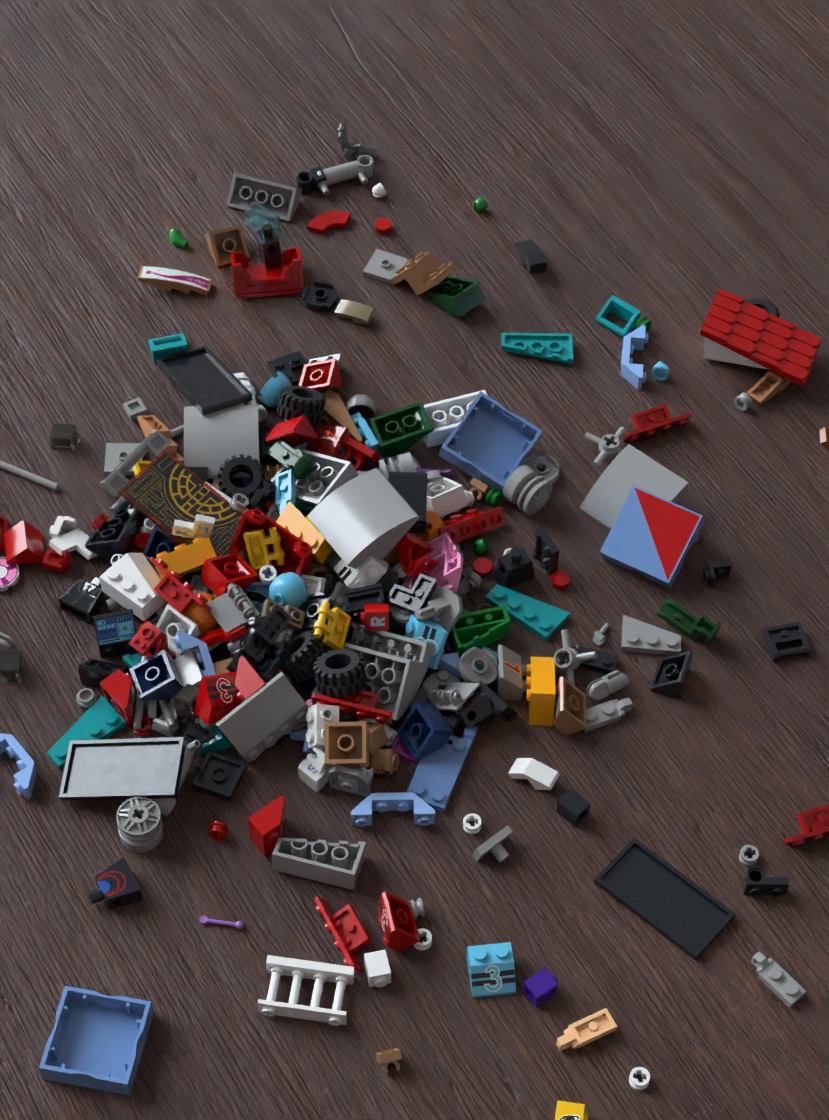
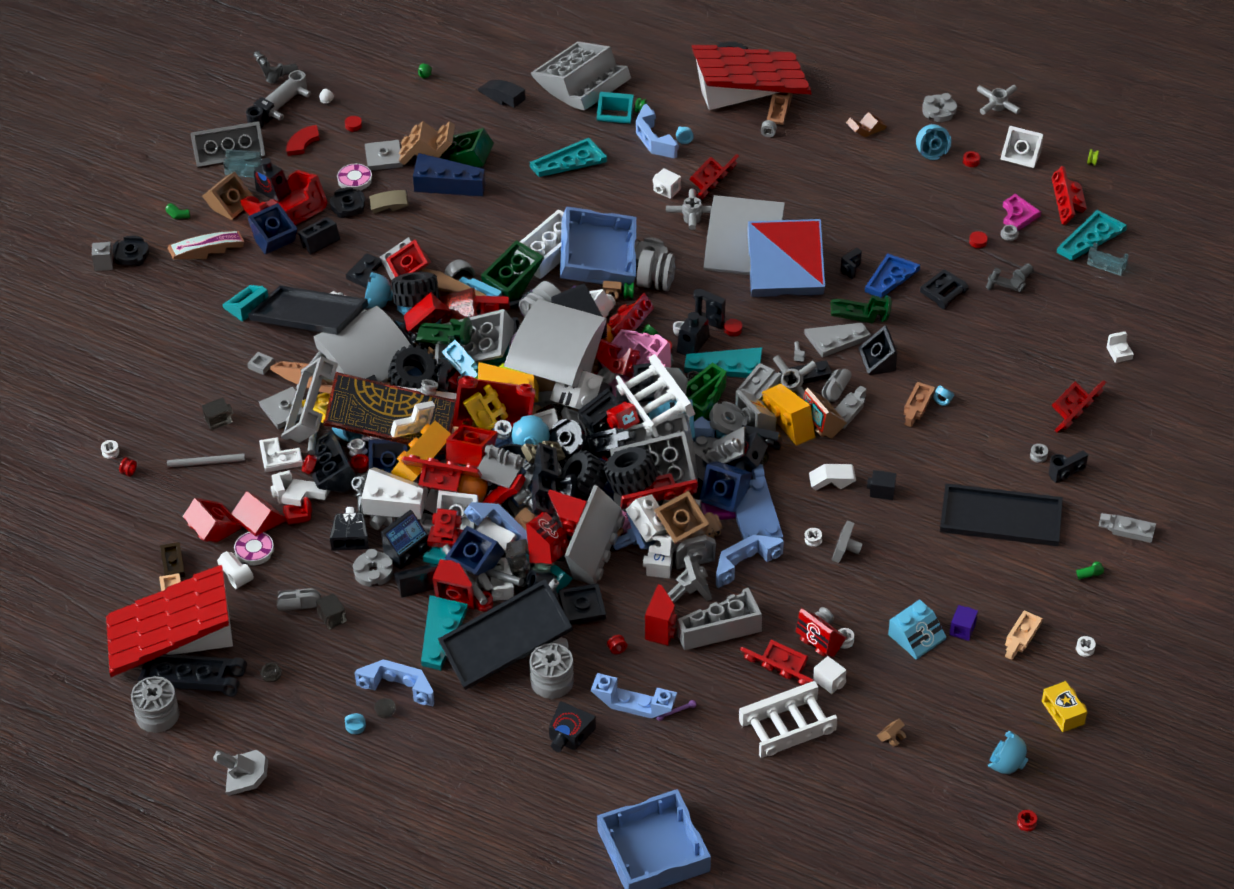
camera: 30 degrees left, 5 degrees down
(77, 635) = (370, 559): none -> light grey plate
(81, 501) = (275, 459): none -> white tile
(86, 250) = (102, 256): none -> light grey brick
(86, 698) = (417, 603): light grey plate -> none
(116, 263) = (135, 257): none -> black plate
(185, 888) = (632, 702): none -> light blue slope
(234, 290) = (272, 228): none -> dark blue slope
(272, 315) = (319, 235): none -> black hinge
(329, 805) = (691, 580): none -> light grey piece
(337, 627) = (594, 439): yellow plate -> none
(345, 276) = (354, 176): none -> tile
(419, 312) = (447, 177): none -> dark blue wedge
(429, 619) = (664, 380): none -> white fence
(538, 645) = (759, 380): none -> light grey plate
(607, 411) = (667, 183): none -> white brick
(612, 269) = (581, 74): none -> light grey slope
(671, 743) = (917, 402): none -> nougat hinge
(703, 746) = (945, 393): none -> medium azure tile
(710, 1006) = (1094, 570): none -> green arm
(744, 601) = (890, 275): none -> blue wing

